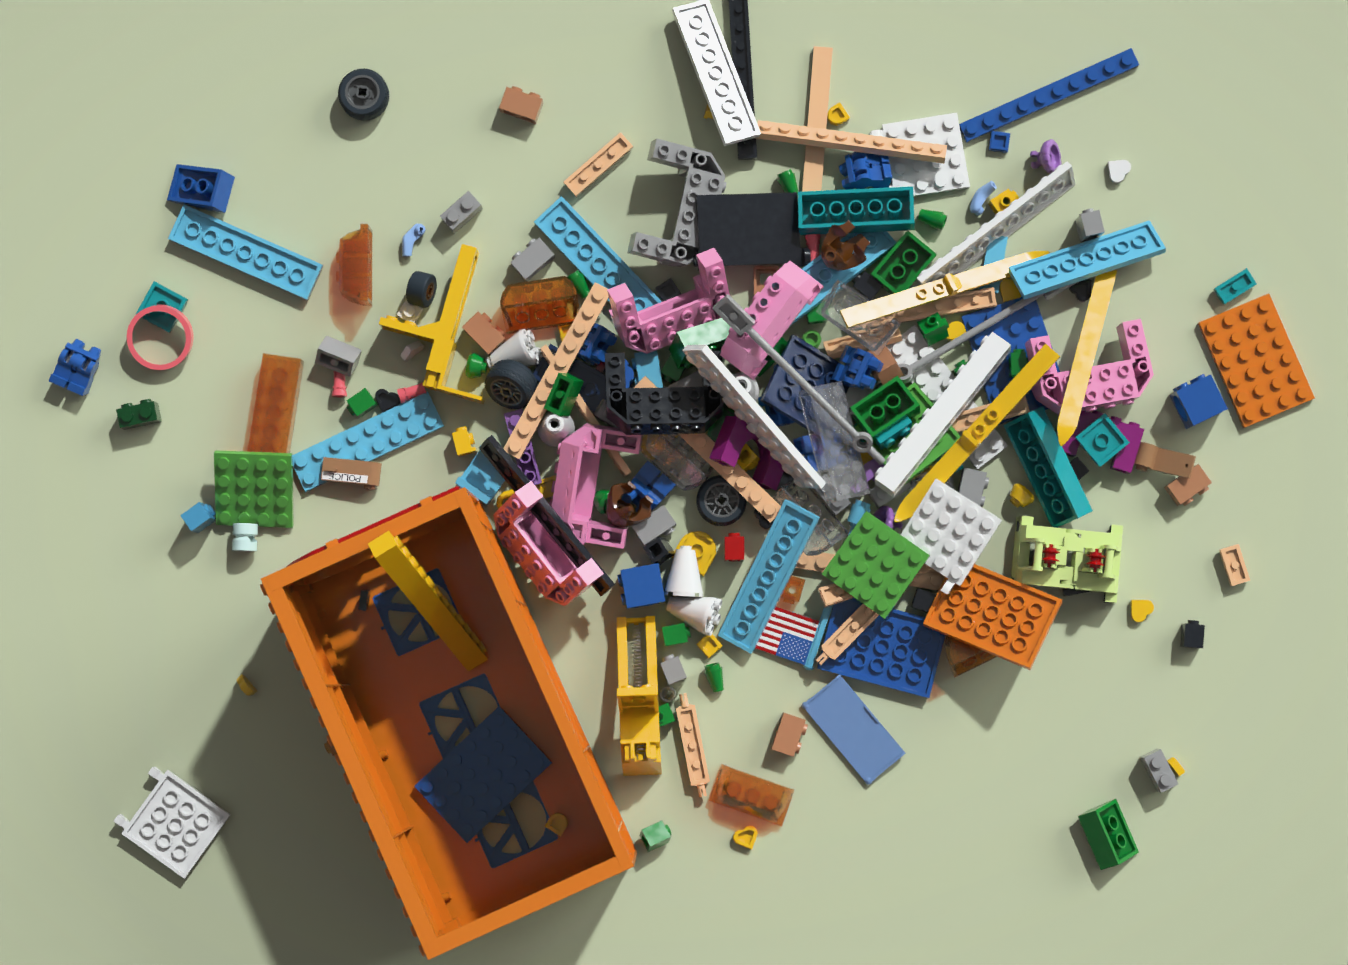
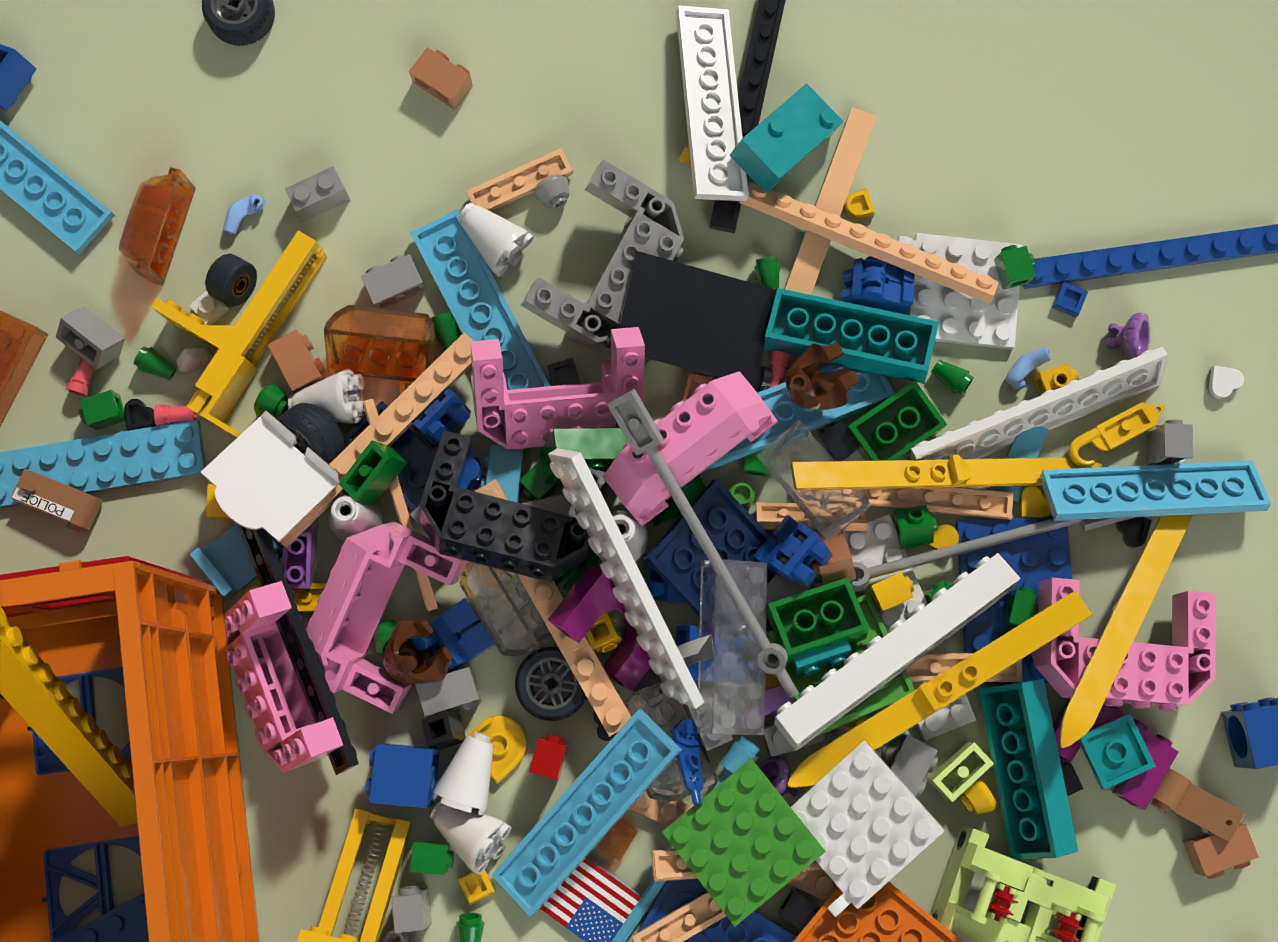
camera: 15 degrees right, 5 degrees down
(386, 361) = (152, 362): none -> green cone
(497, 419) = (268, 480): none -> white piece
(593, 209) = (494, 237): none -> white cone
(623, 165) = (553, 191): none -> light grey cone
(775, 84) = (786, 138): none -> teal brick
(812, 450) = (697, 650): none -> sticker
(826, 523) = (688, 739): none -> blue piece
(929, 377) = (891, 591): none -> yellow brick
(955, 131) = (1015, 266): none -> green brick
(1005, 482) = (960, 771): none -> yellowish green brick
(1053, 225) = (1117, 431): none -> yellow plate

